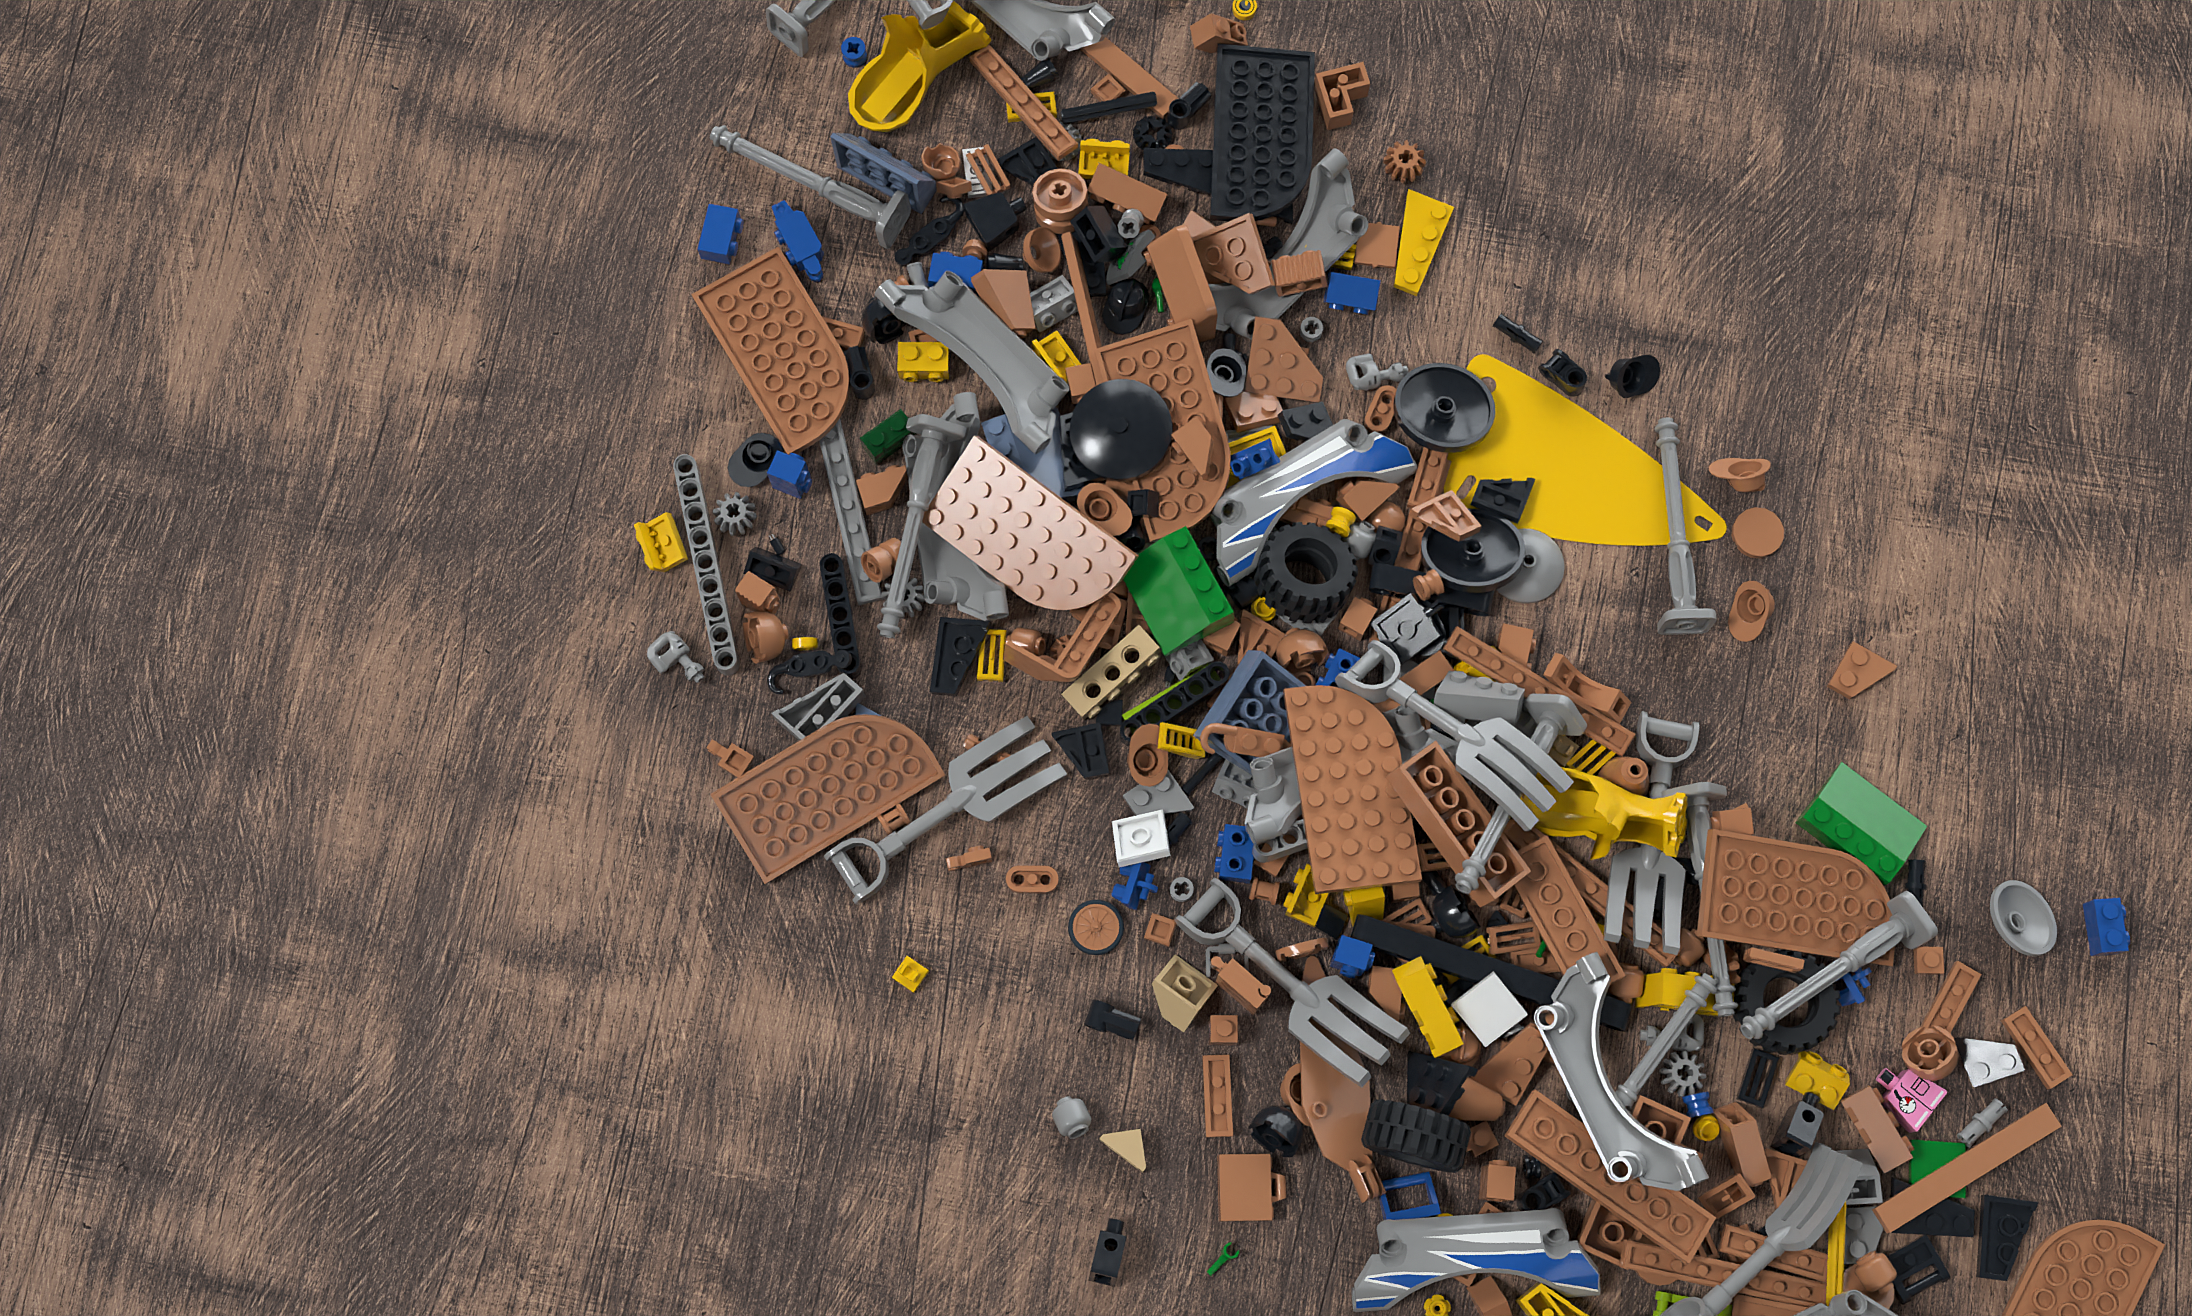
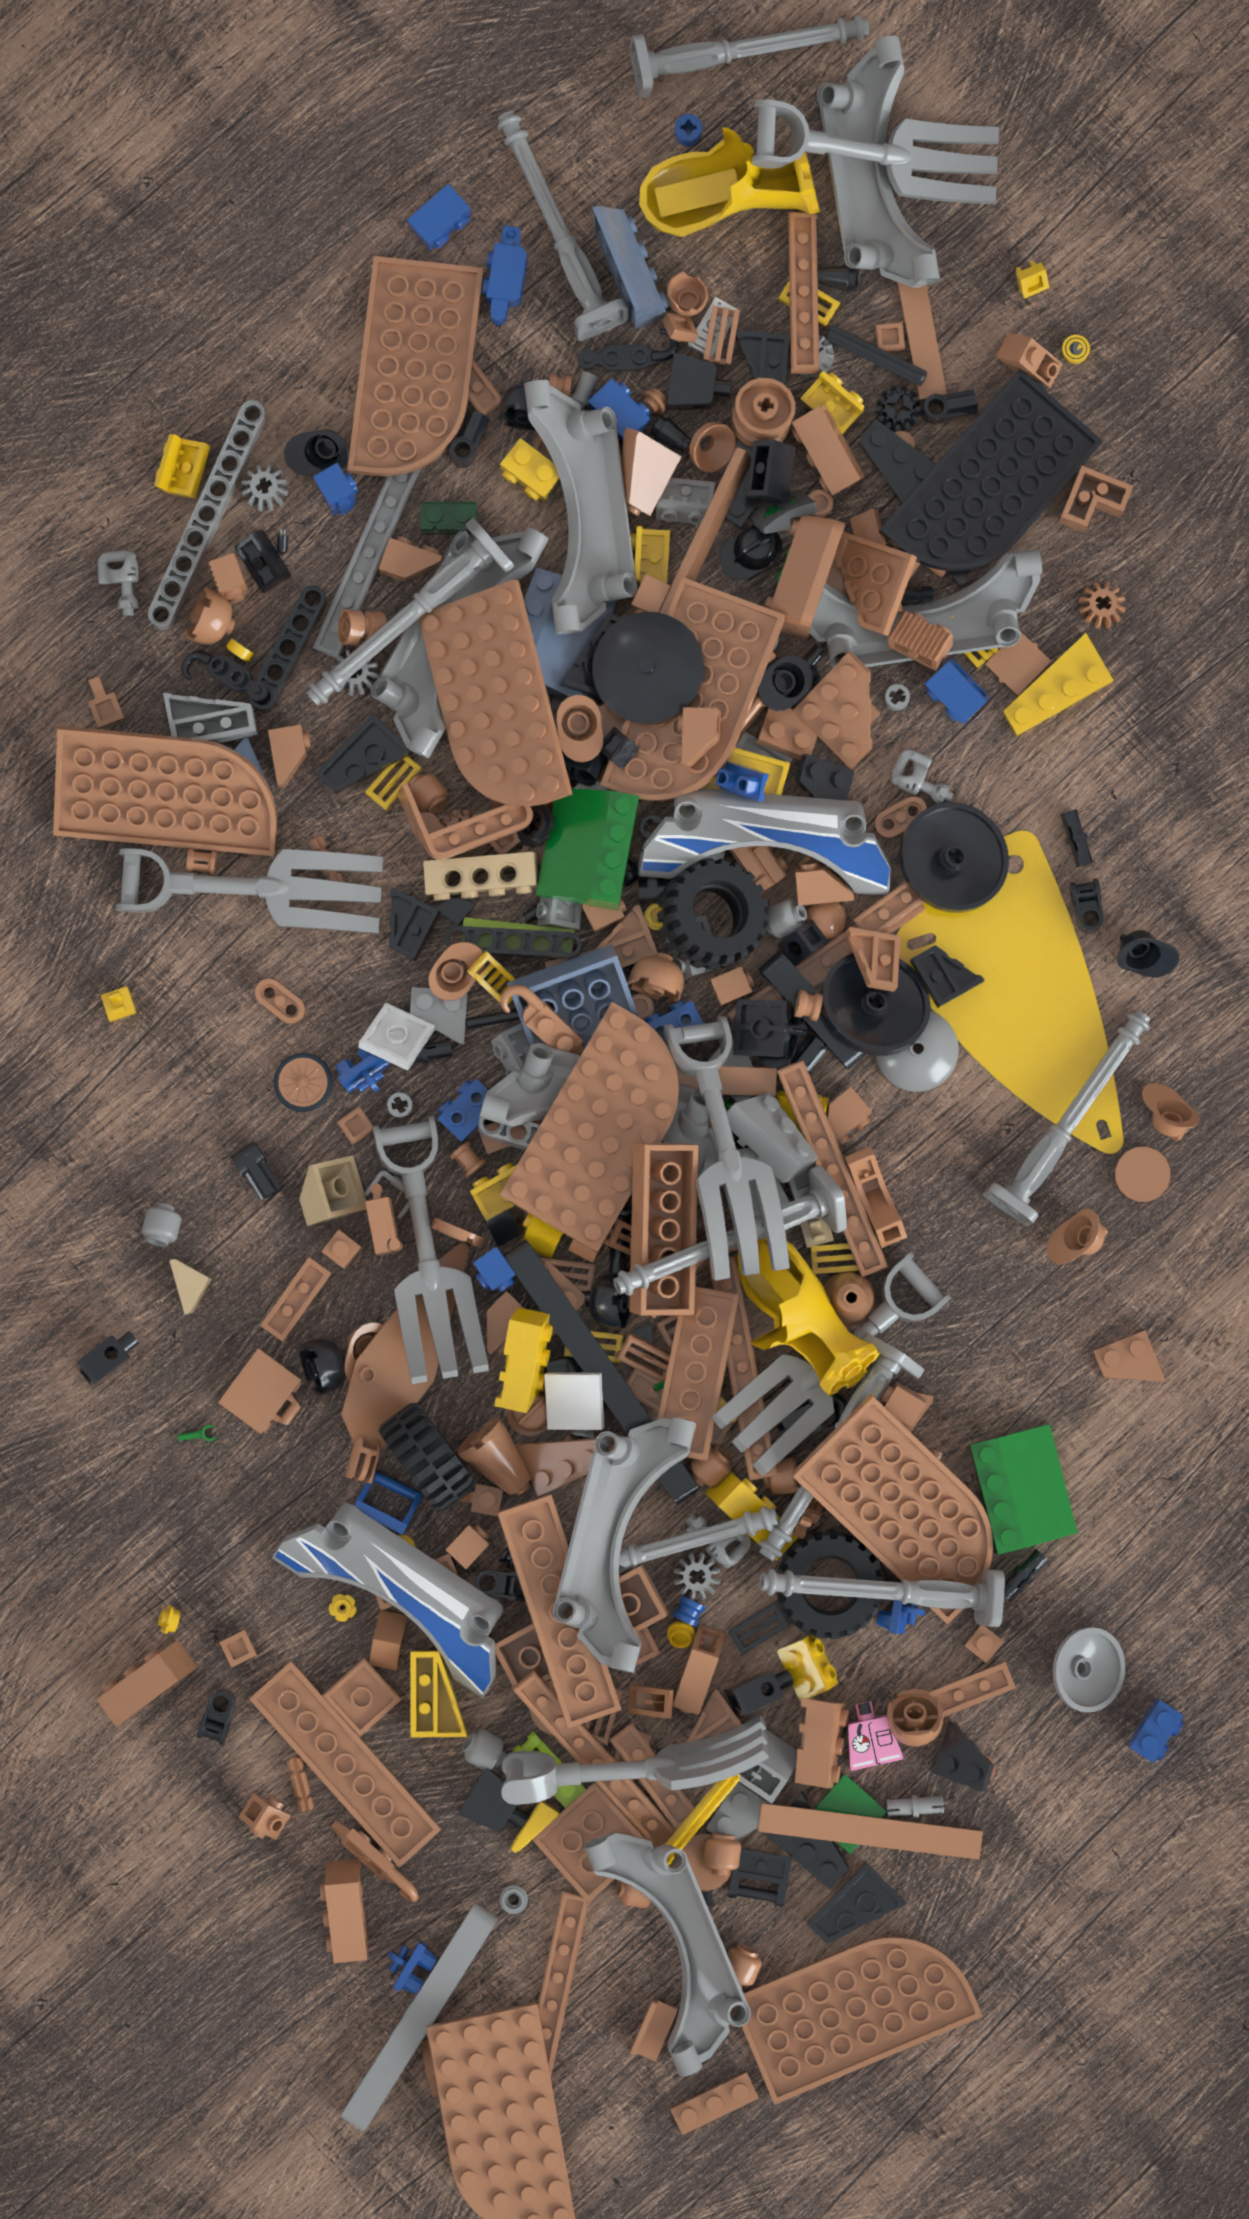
camera: 40 degrees right, 10 degrees up
(897, 690) = (288, 751): none -> nougat slope
(975, 856) = (246, 945): nougat plate -> none
(1127, 596) = (530, 836): none -> black gear
(1128, 216) = (810, 480): light grey bush -> none
(1341, 521) = (778, 892): yellow wheel -> none
(1435, 1082) = (478, 1426): black wing -> none
(1773, 960) = (839, 1542): nougat tile -> none
(2036, 1047) = (1012, 1781): nougat plate -> none

